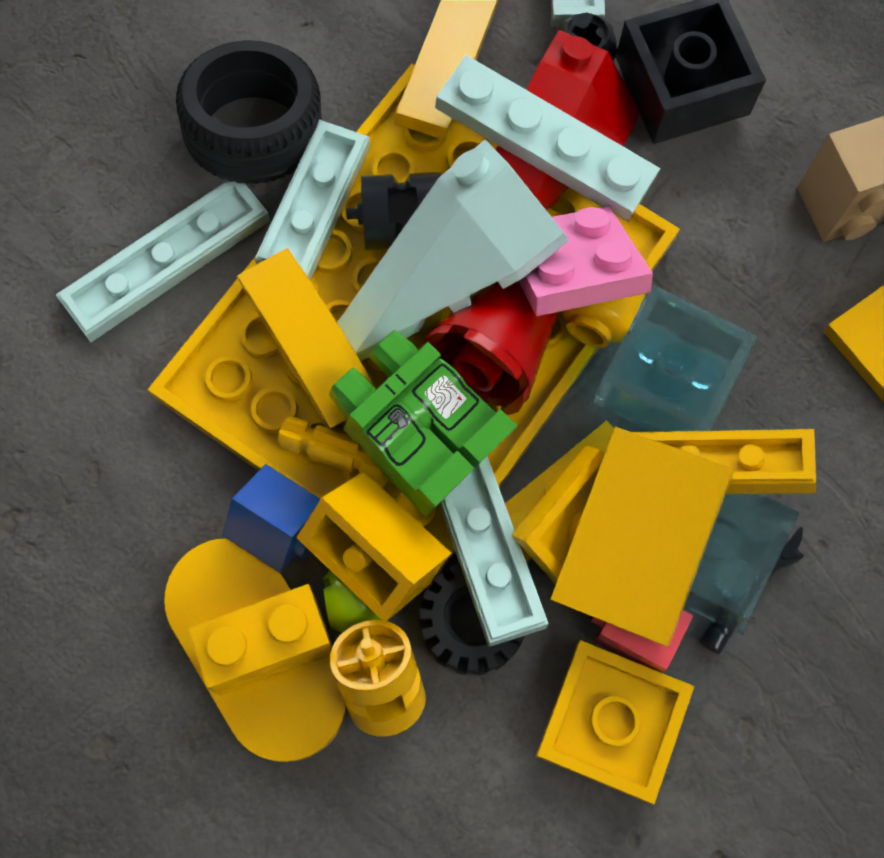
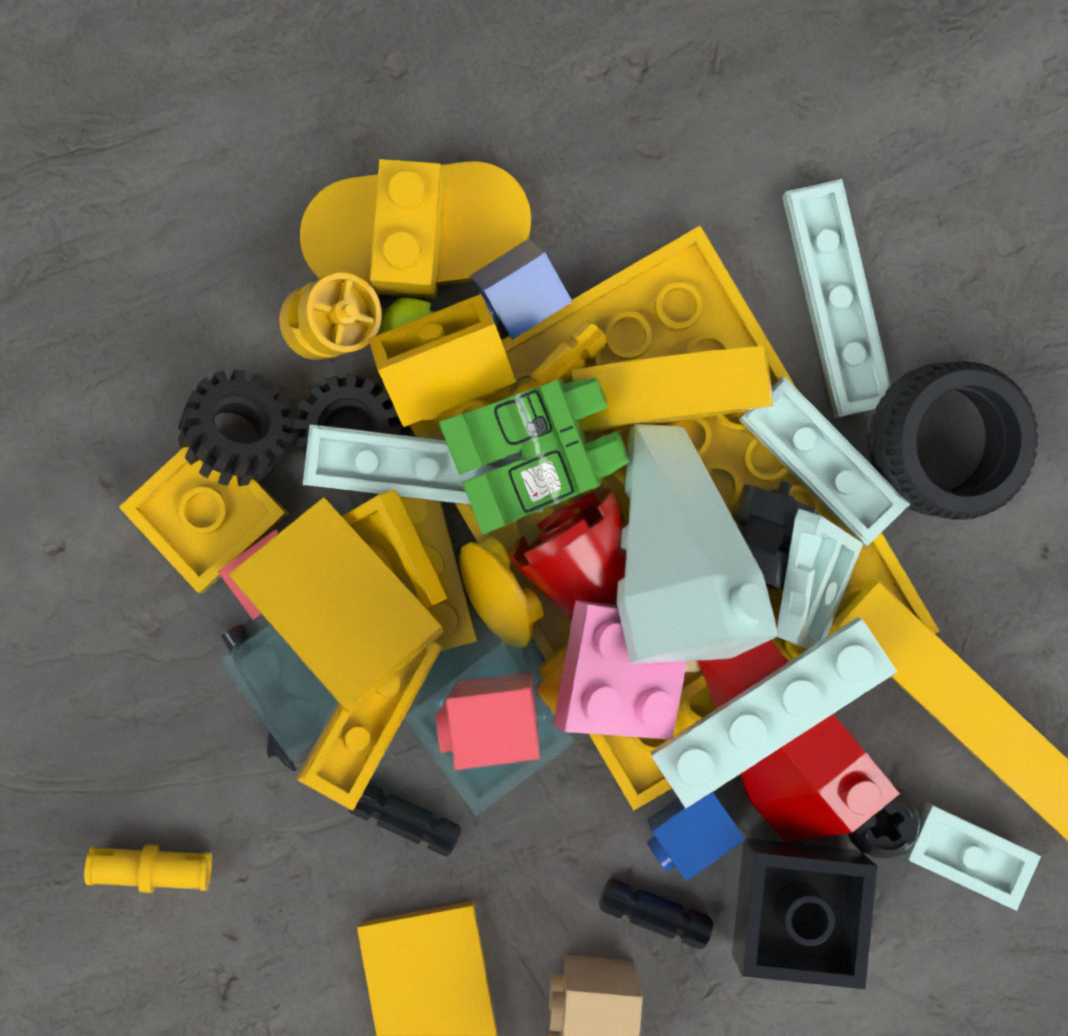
camera: 120 degrees right, 15 degrees up
(415, 157) = (815, 578): none -> light aqua wing
(550, 739) = (248, 401): none -> black tyre
(557, 411) = (497, 594): none -> yellow dish
(676, 322) = (490, 721): none -> coral brick
(681, 179) = (692, 835): none -> blue brick
(751, 183) = (656, 914): none -> black axle
(788, 399) = (407, 820): none -> black axle

